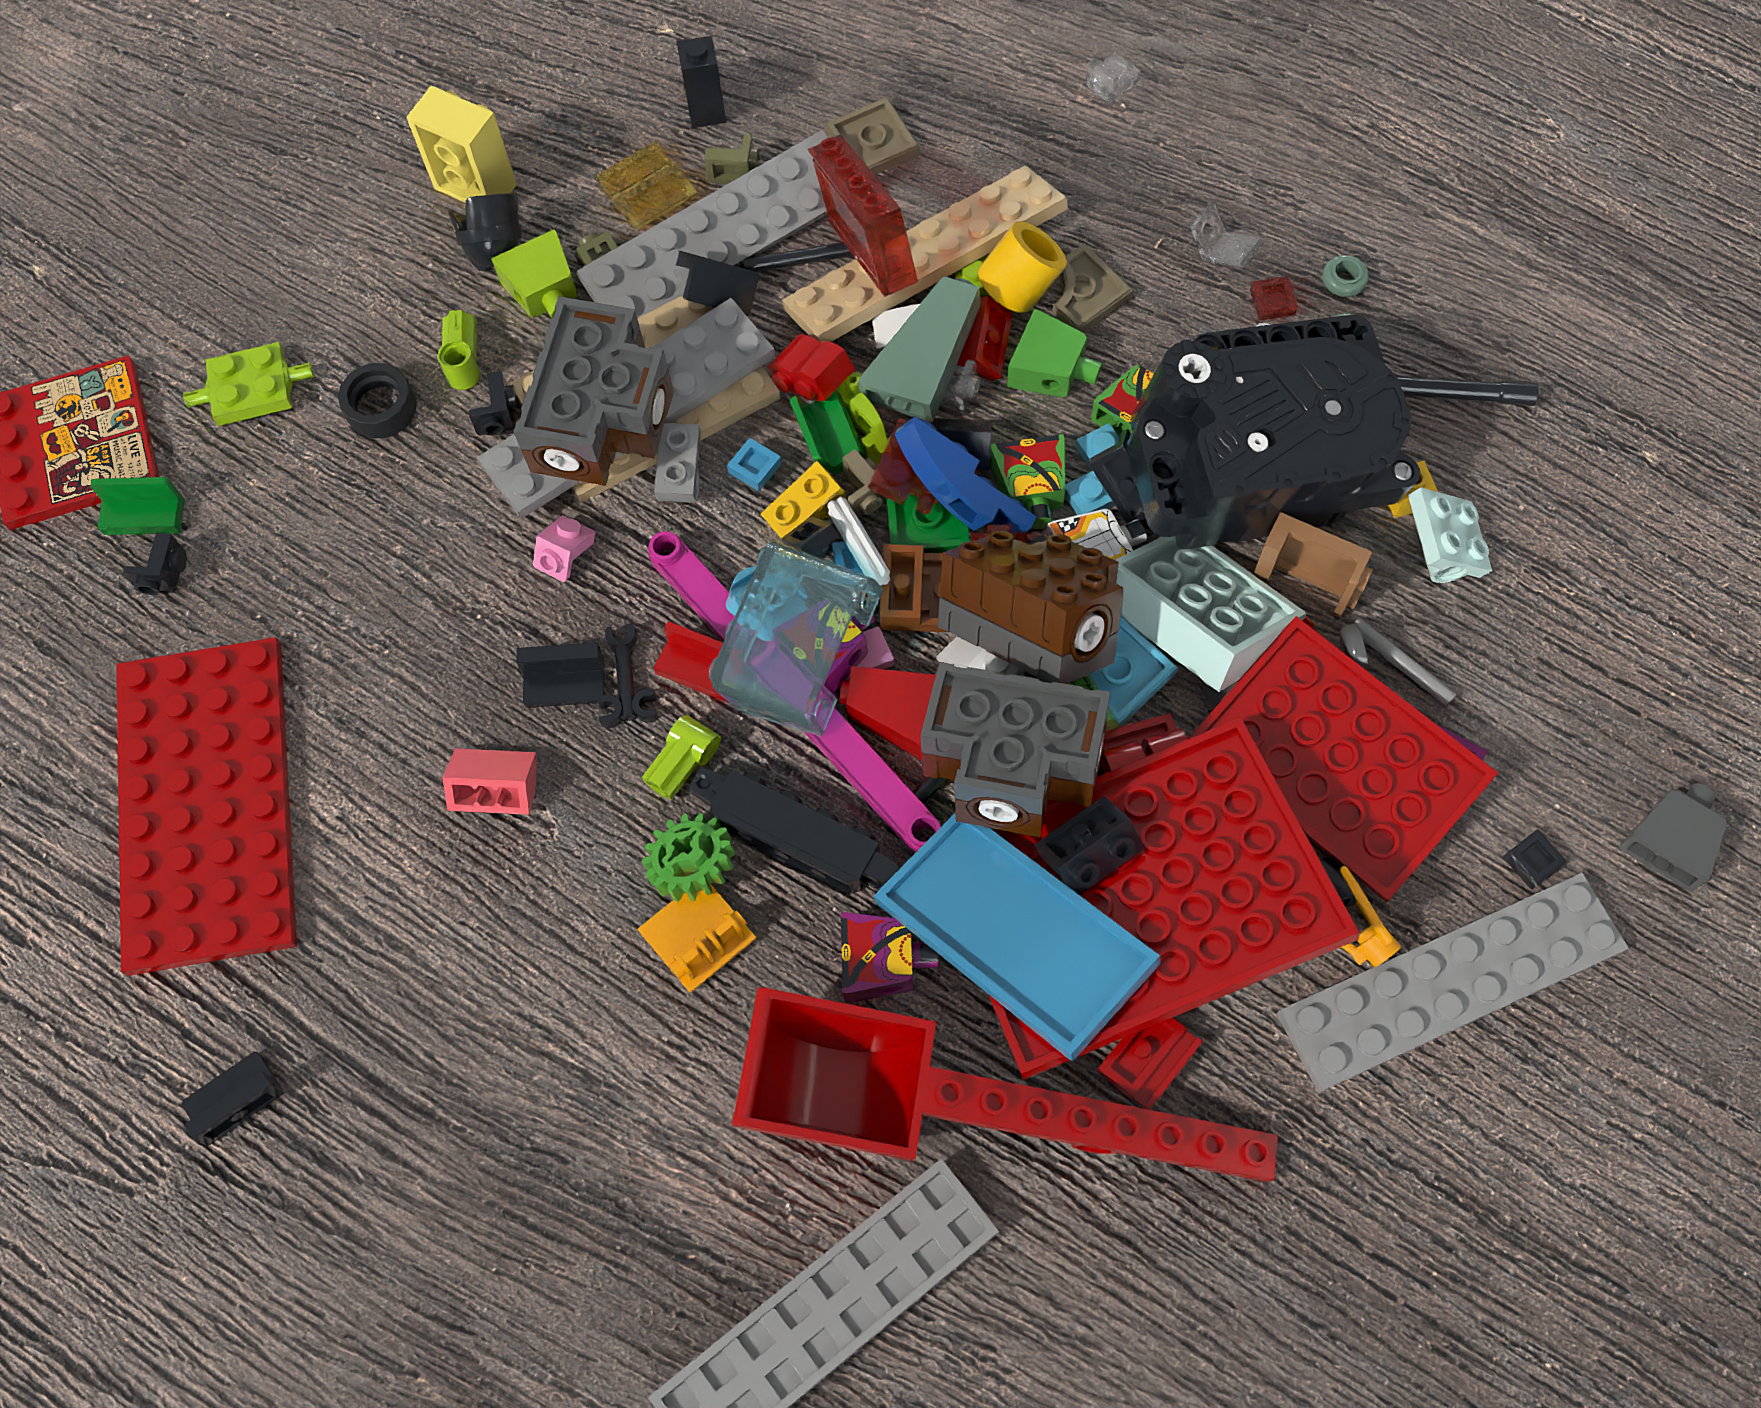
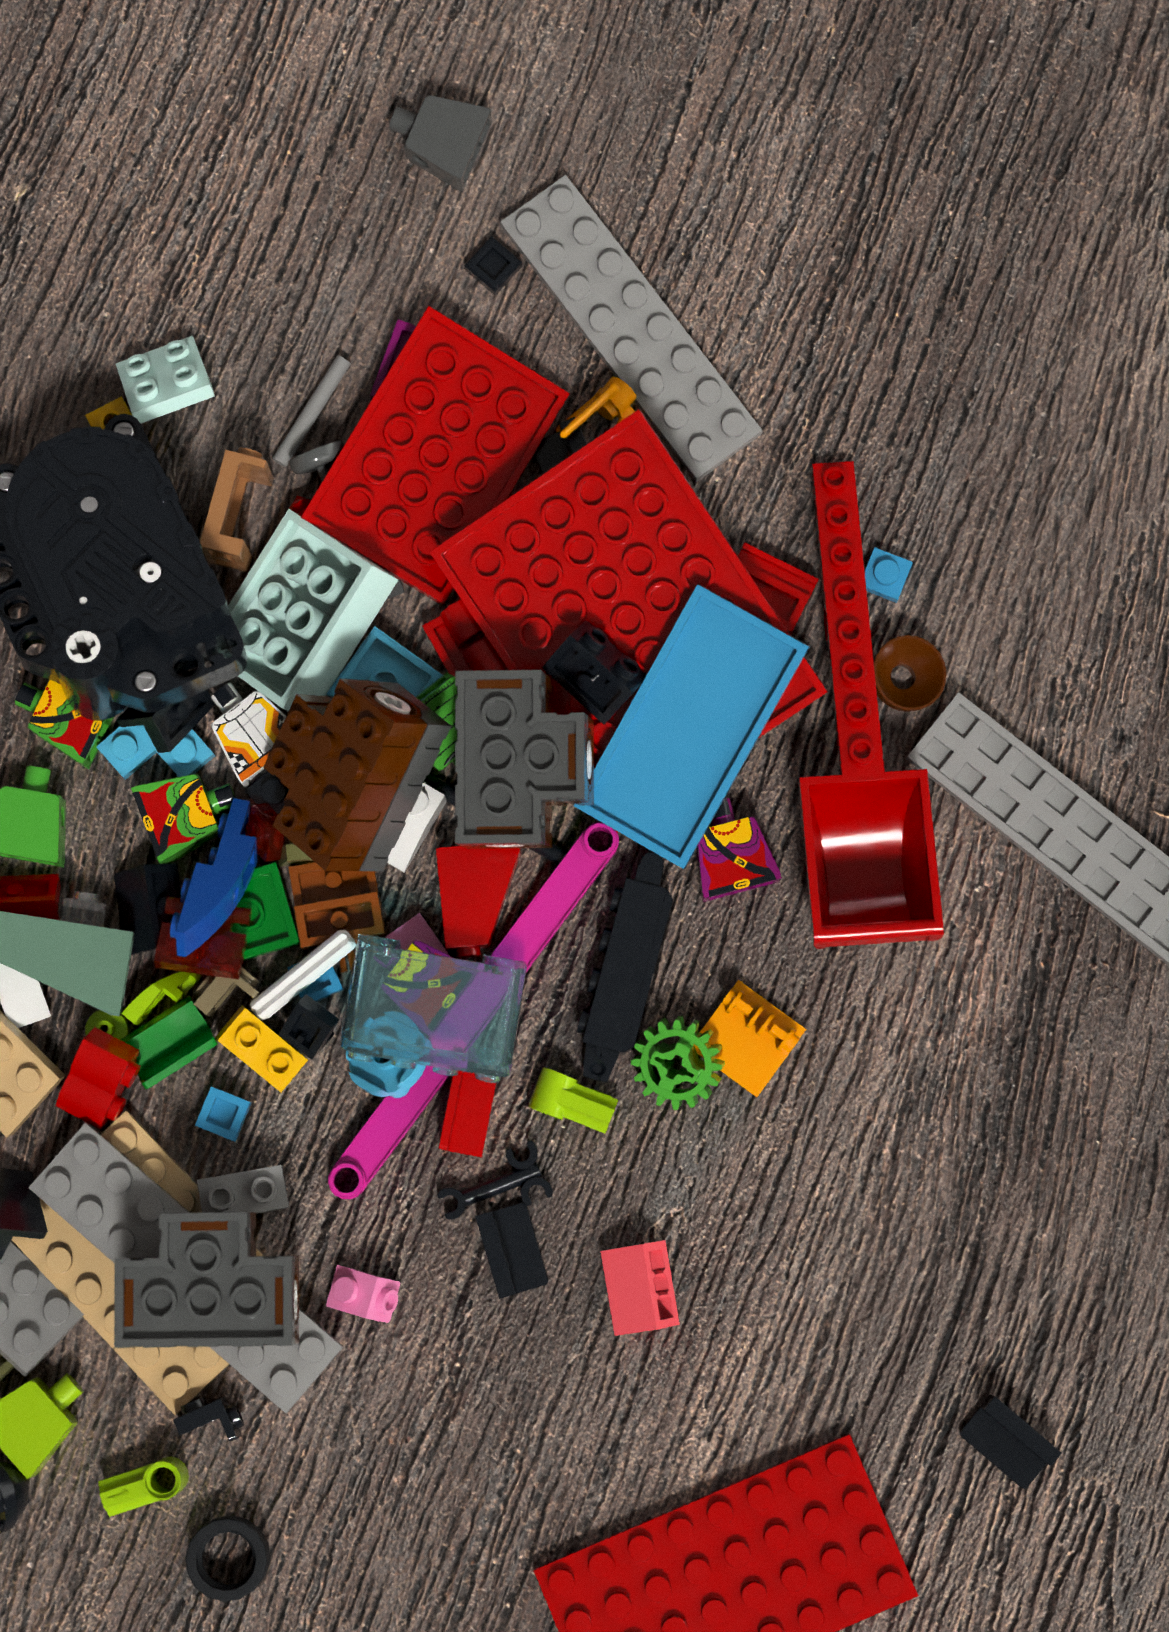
camera: 105 degrees left, 15 degrees up
(1035, 1204) = (925, 666): none -> reddish brown piece
(1143, 1187) = (886, 574): none -> dark azure plate

